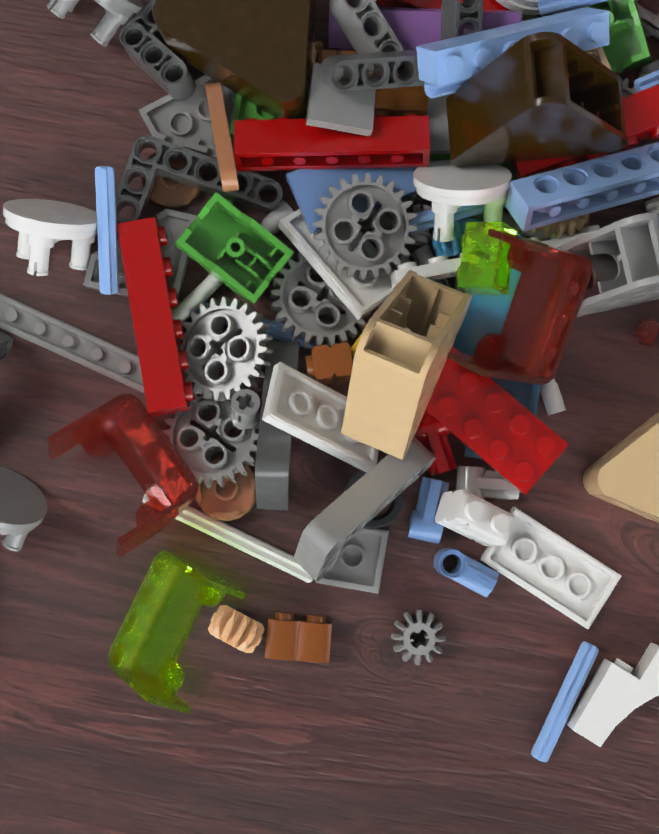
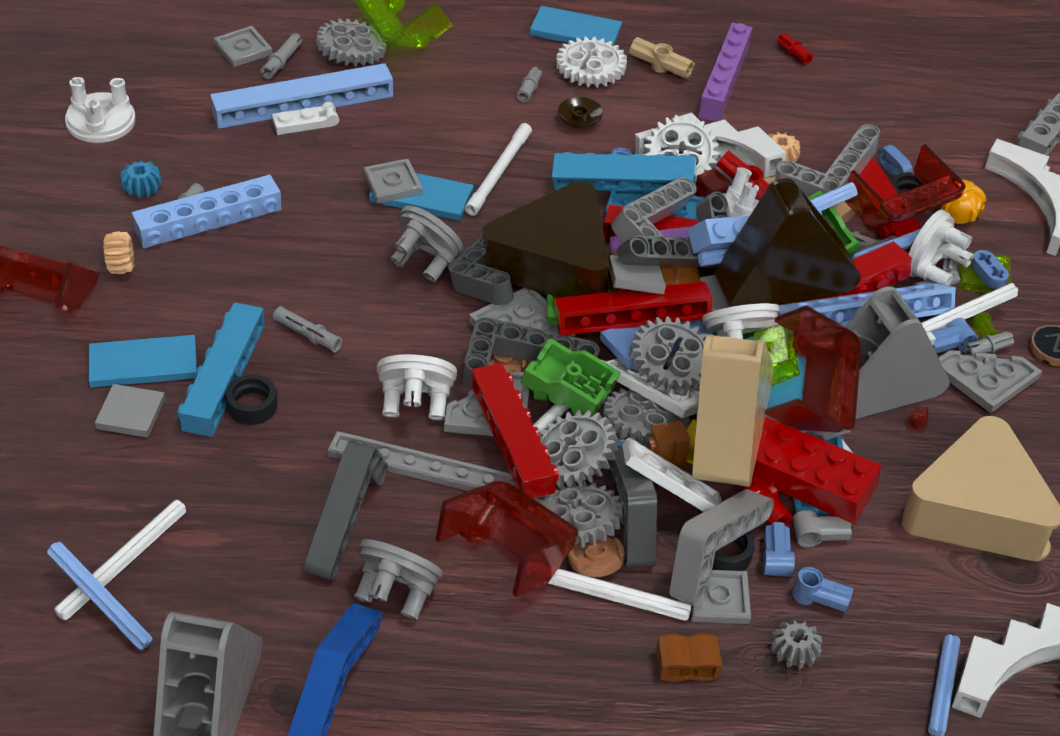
camera: 10 degrees left, 40 degrees down
(106, 229) = (464, 375): light blue axle -> none
(159, 624) = (563, 646): clear neon green windscreen -> none
(221, 137) = (545, 313): nougat beam -> none
(236, 629) = (631, 648): light nougat gear -> none
(241, 407) = (604, 480): light grey bush -> none
(474, 518) = (819, 542): white brick -> none
(553, 569) = (898, 587): white tile -> none

